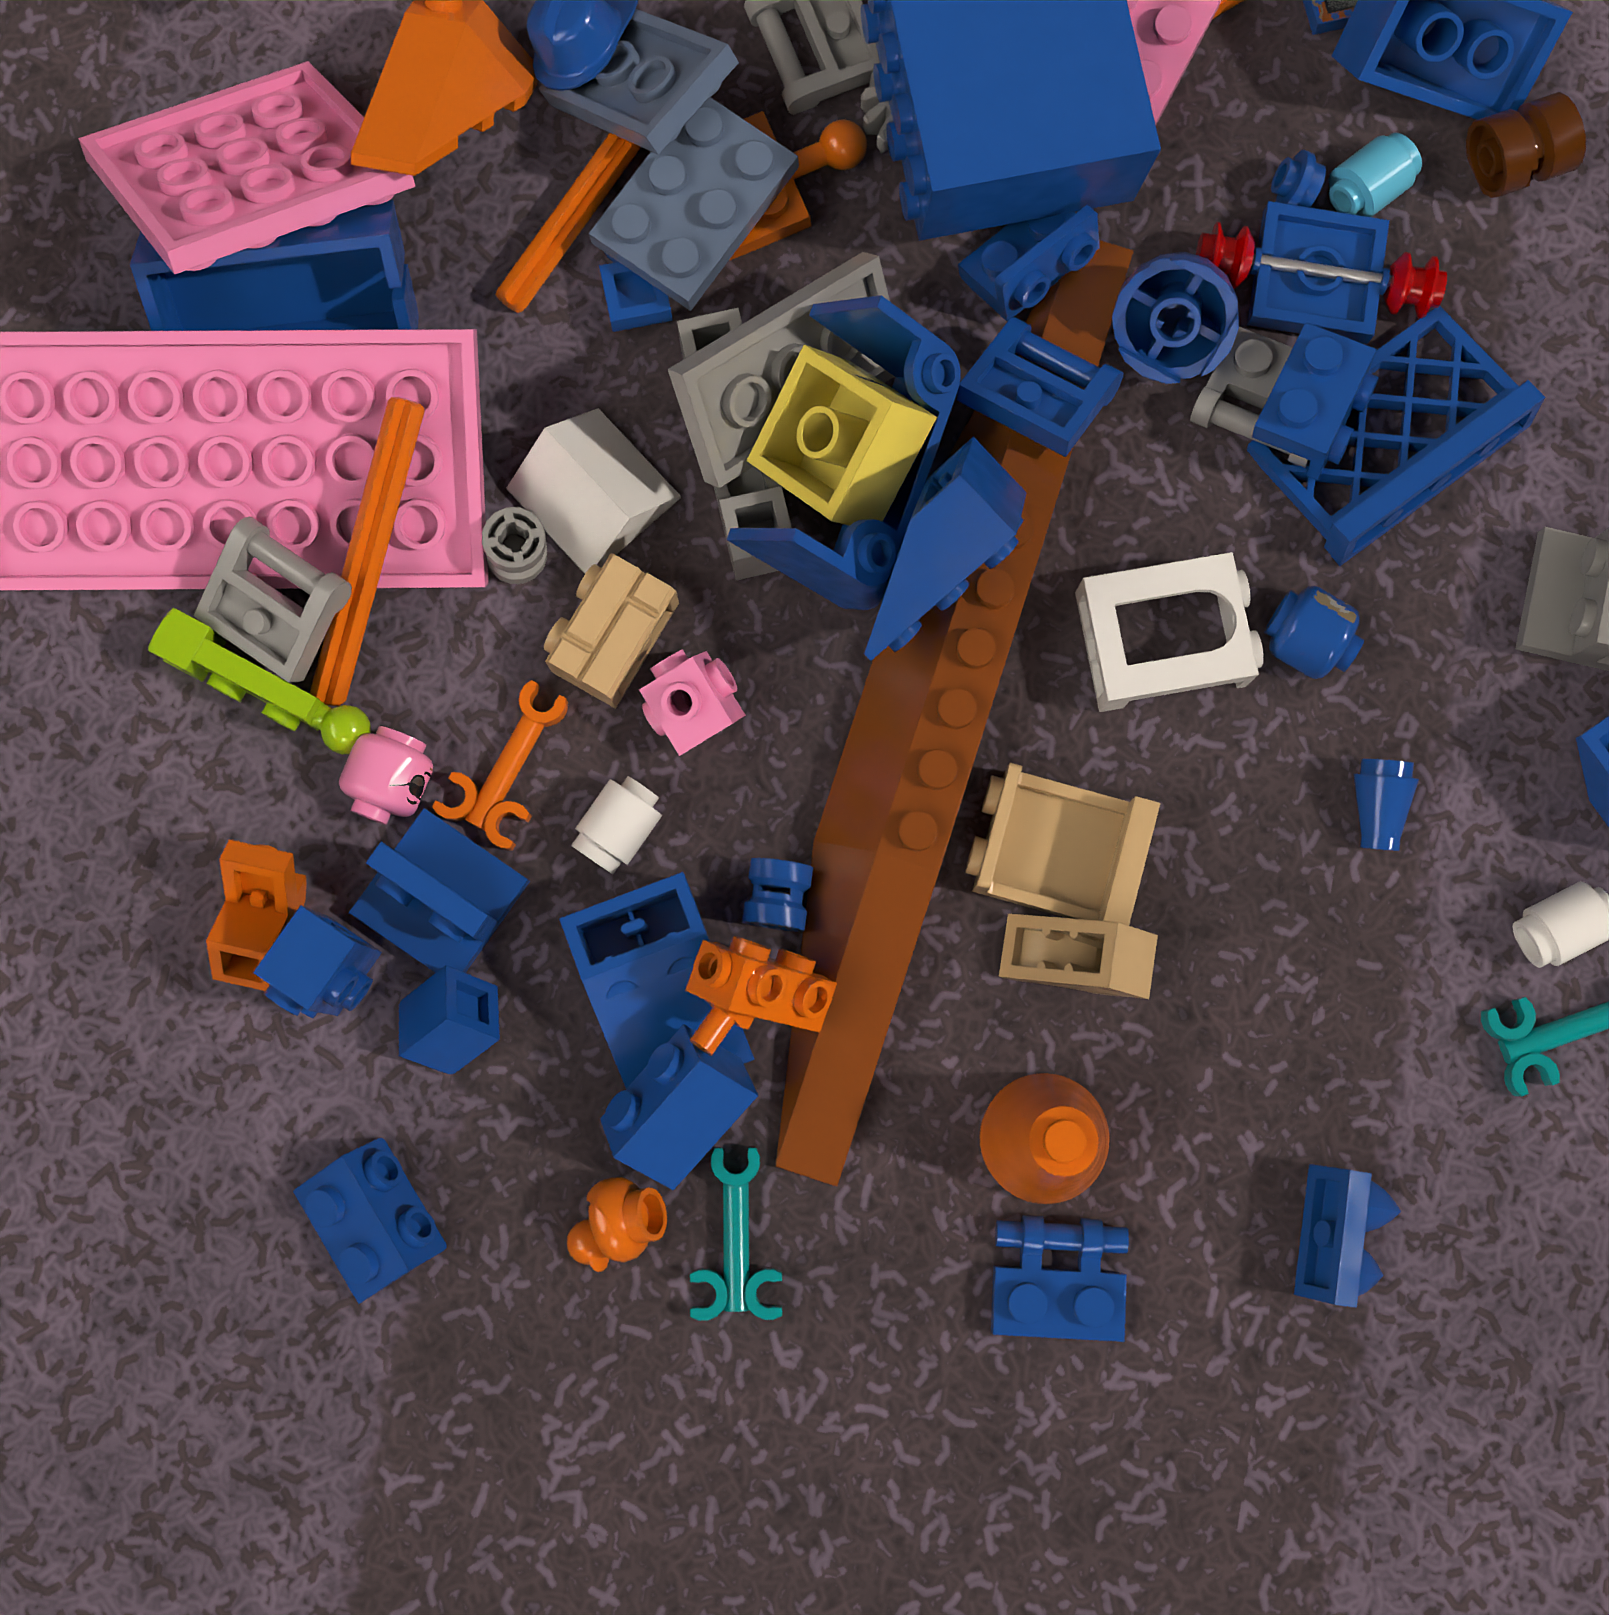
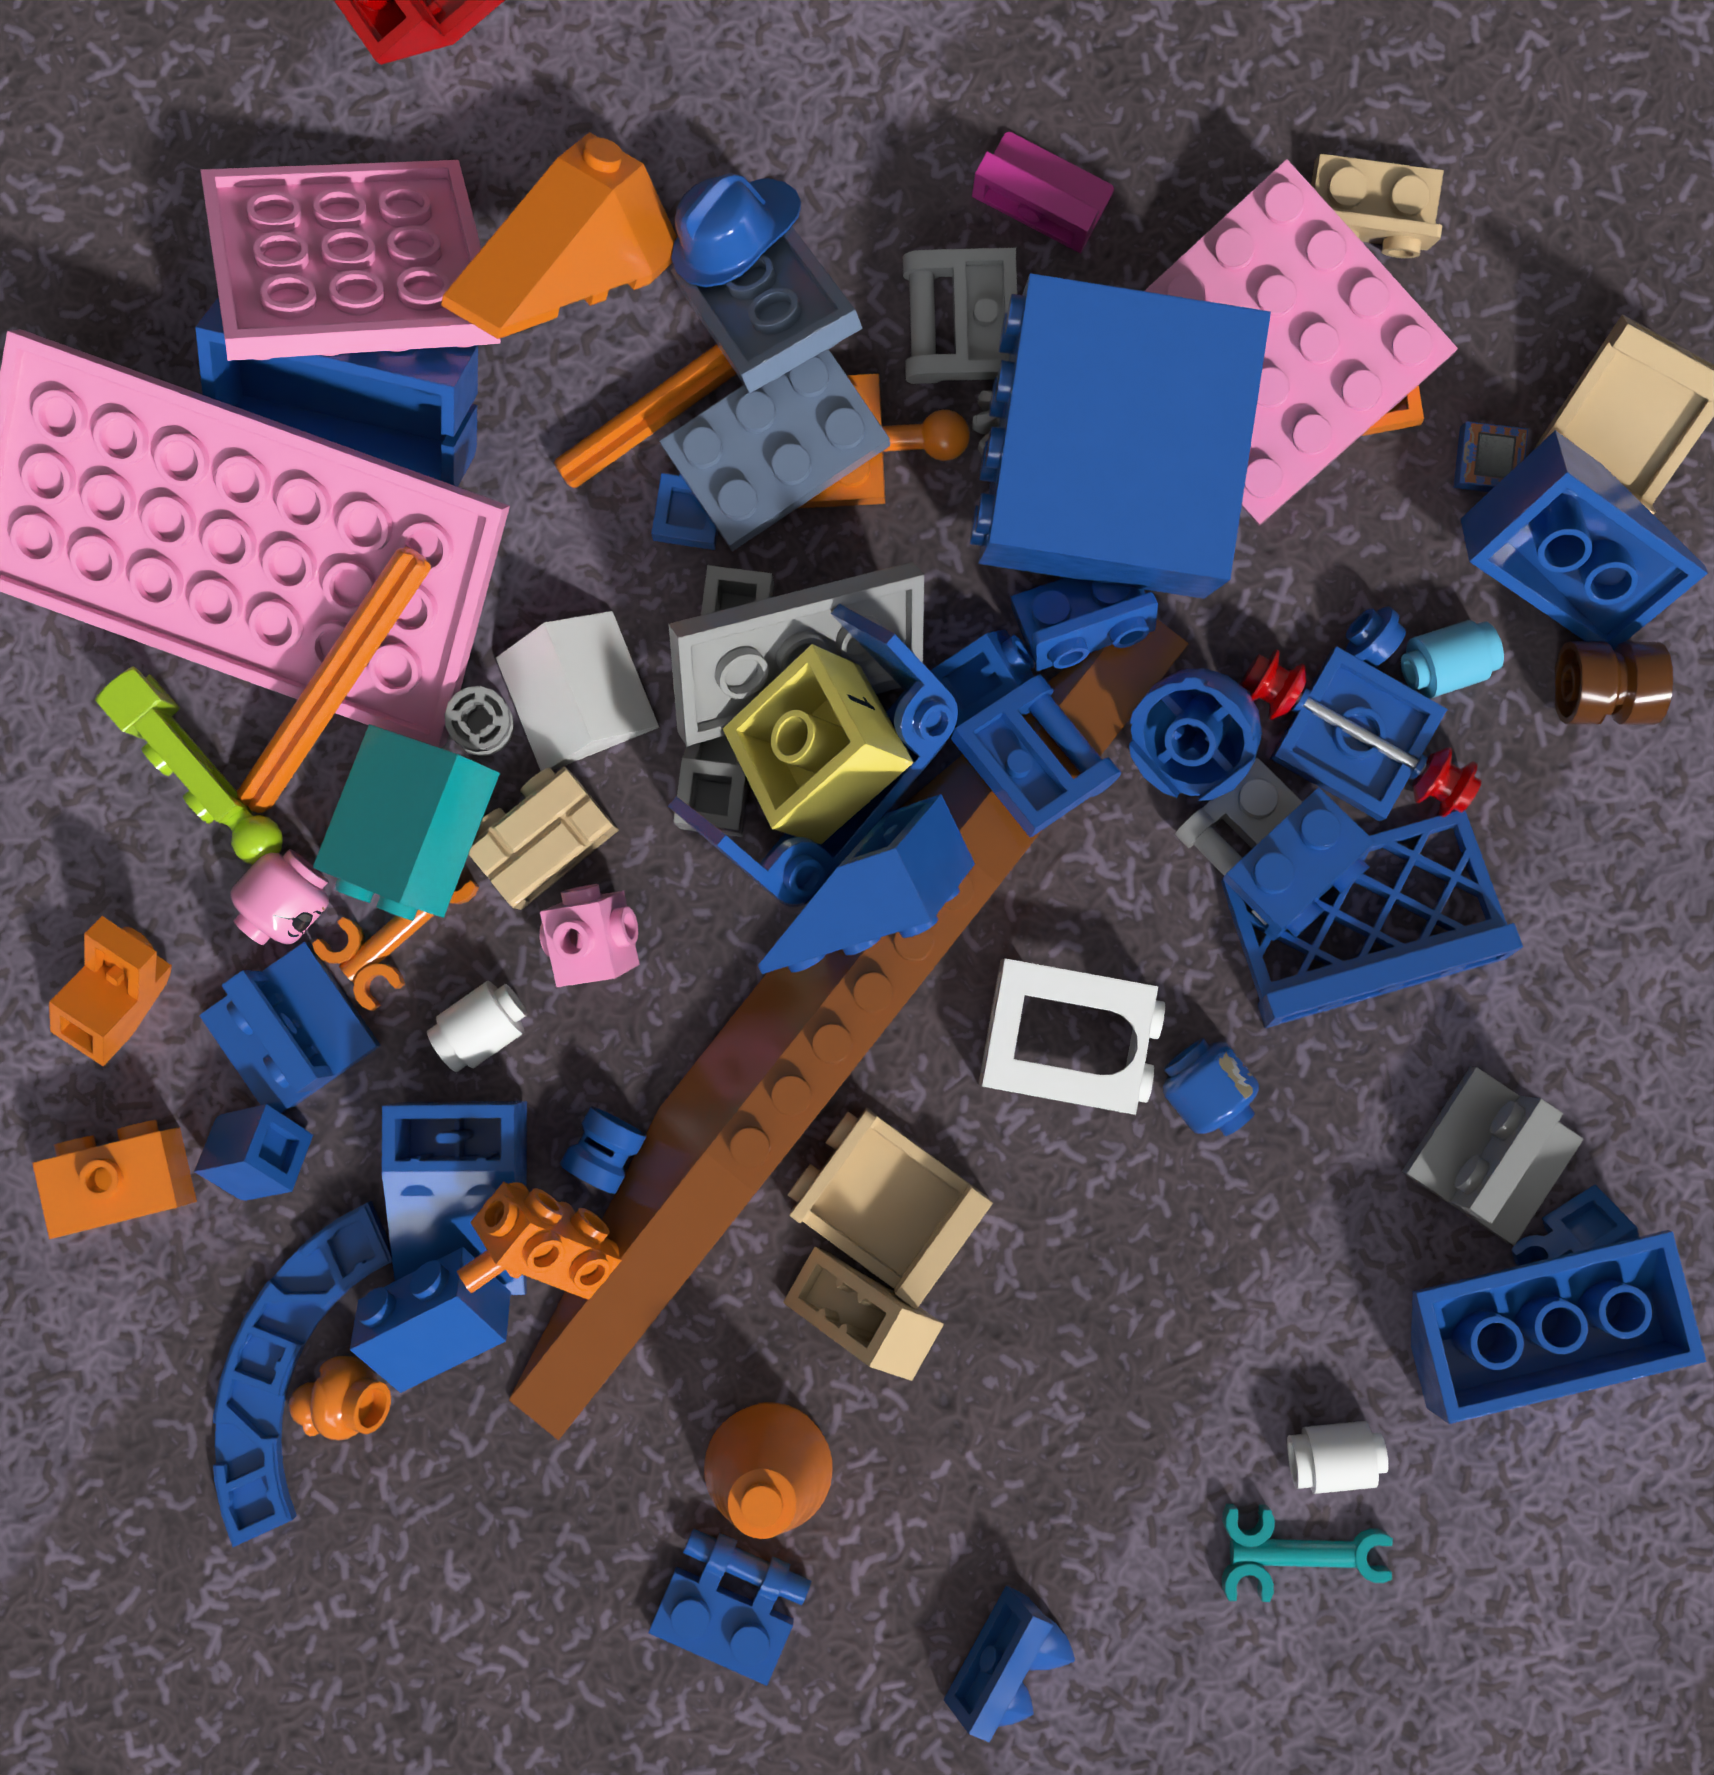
camera: 20 degrees right, 5 degrees up
(261, 617) = (211, 705): light grey plate -> none
(317, 966) = (146, 1062): blue brick -> none
(324, 1094) = (113, 1181): none -> orange brick
(370, 1218) = (118, 1310): blue bracket -> none
(482, 656) = (405, 824): none -> teal brick
(528, 1217) = (262, 1362): none -> blue tile
(735, 1289) = (429, 1498): teal bar -> none
(967, 328) = (985, 672): none -> blue bracket
(1383, 801) = (1212, 1273): blue cone -> none

